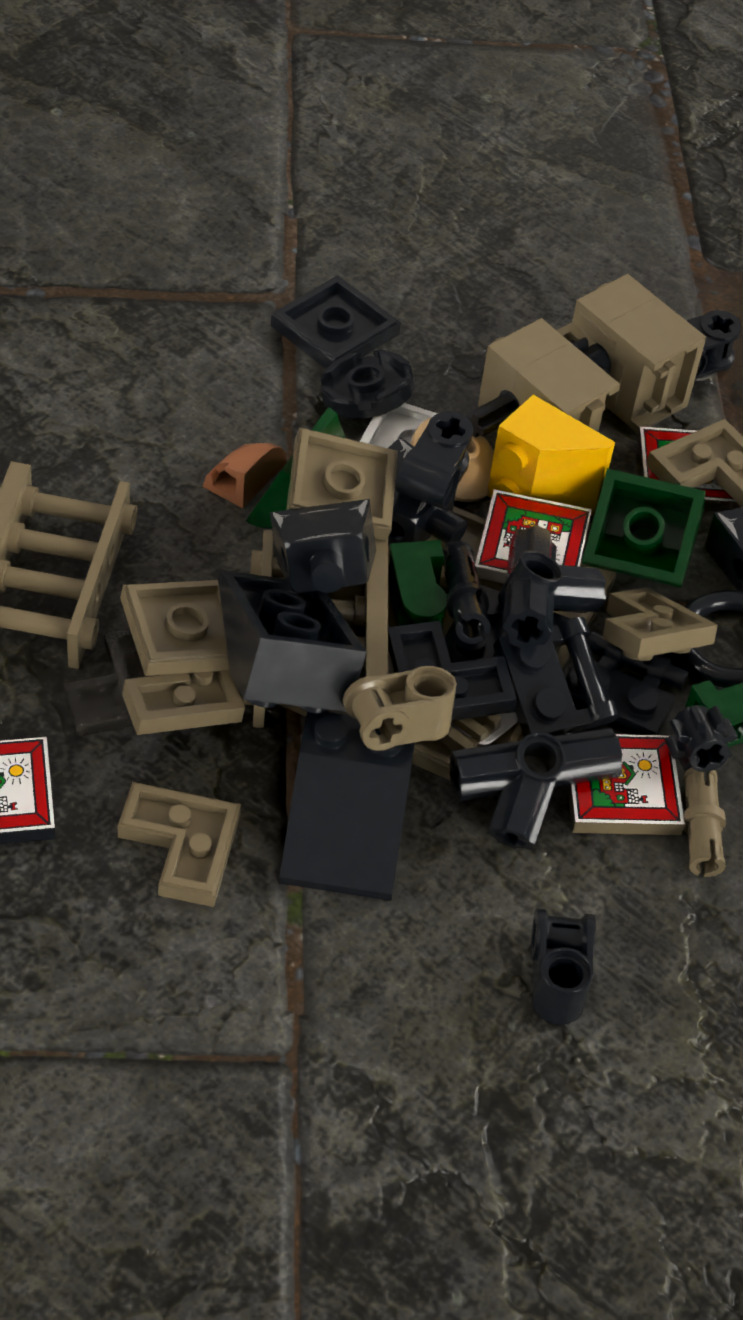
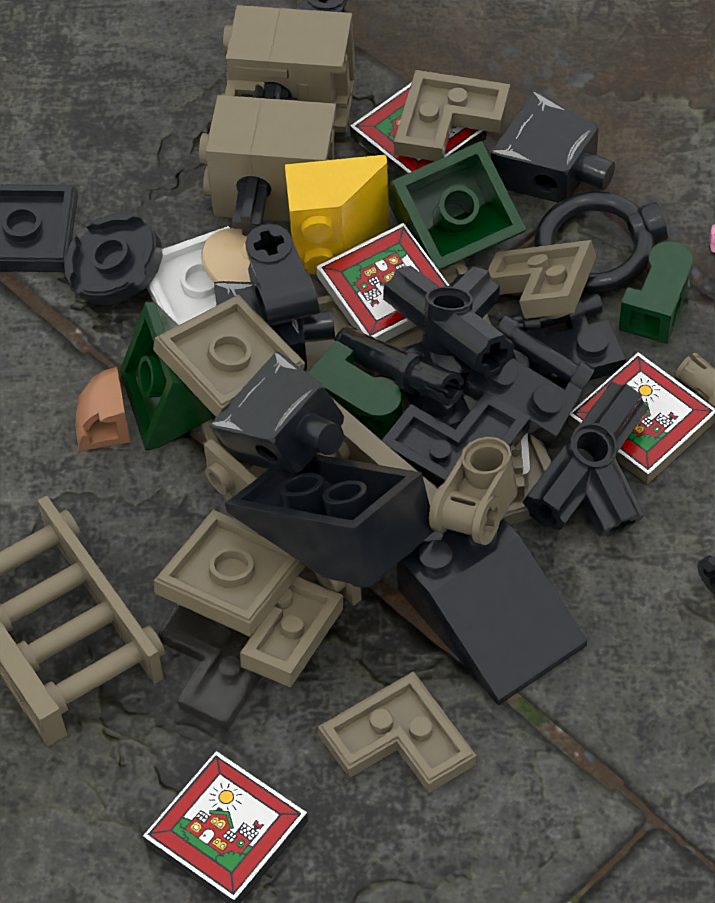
camera: 35 degrees left, 5 degrees up
(701, 738) = (671, 336): black gear -> none

